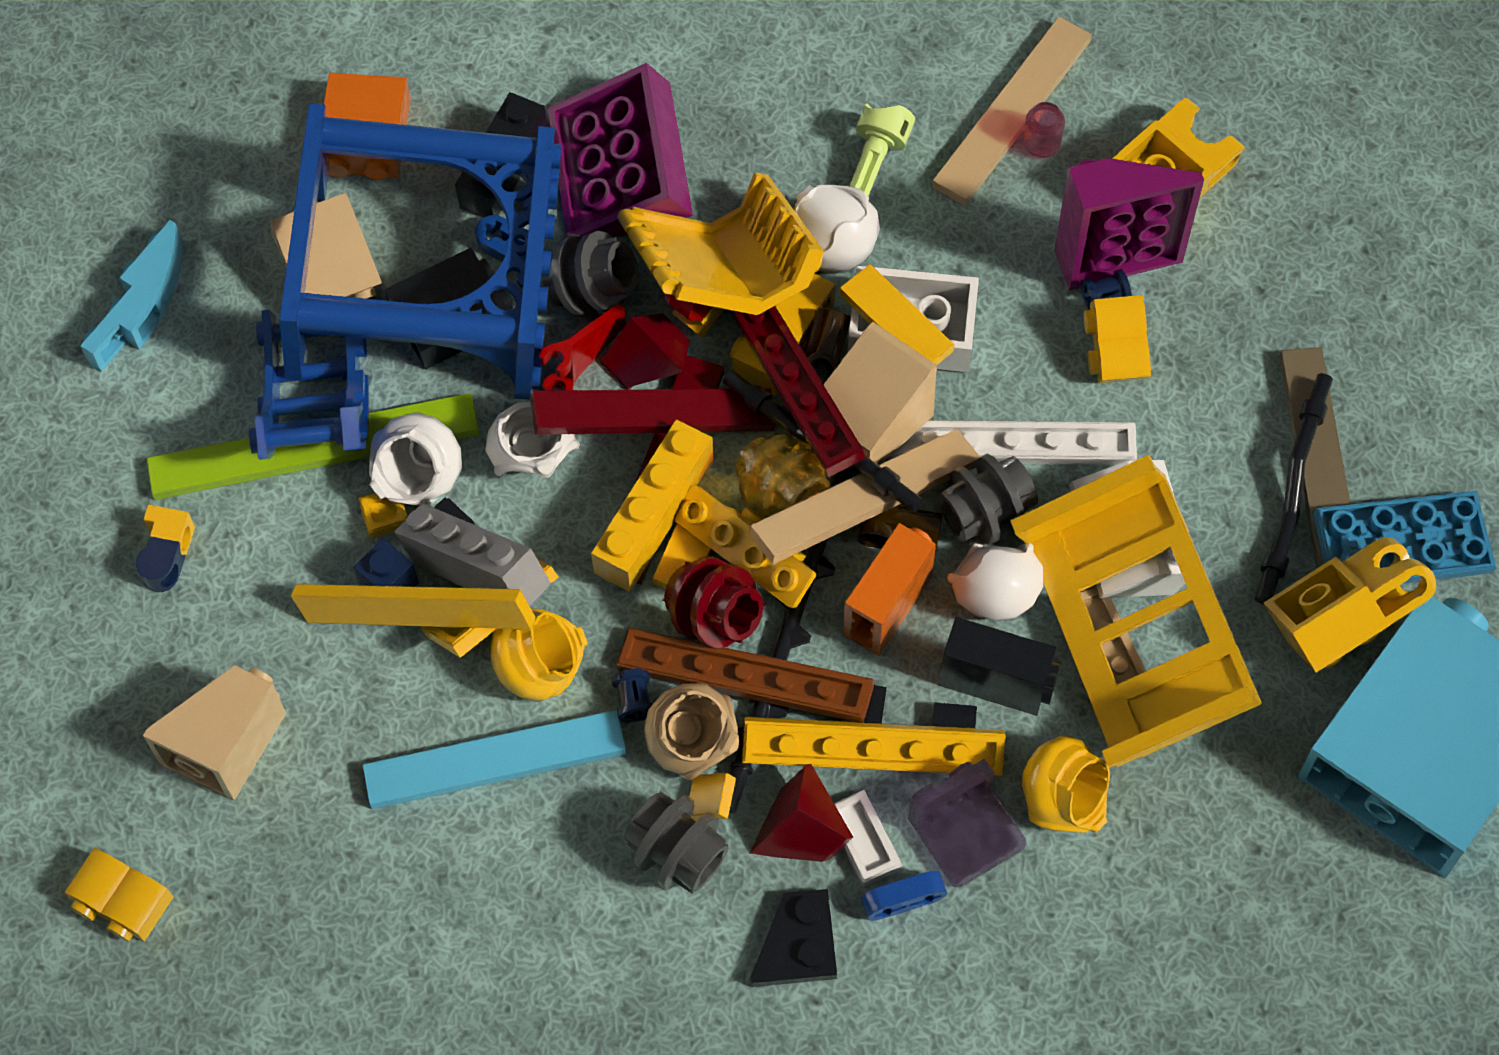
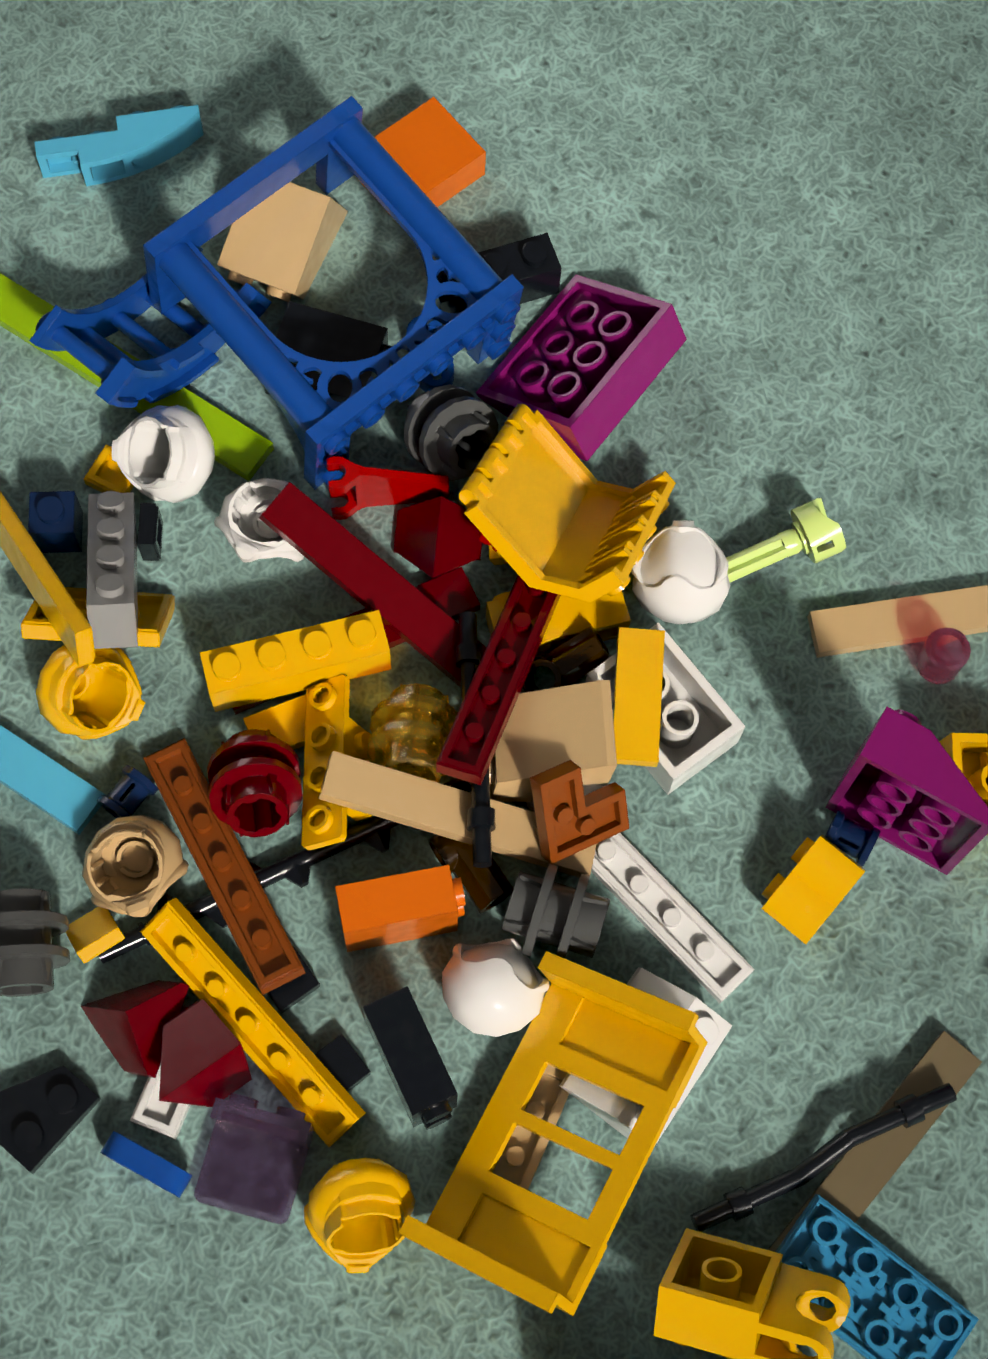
camera: 40 degrees right, 5 degrees up
(868, 790) = (200, 1058): none -> dark red slope
(936, 424) = (570, 819): none -> dark orange plate

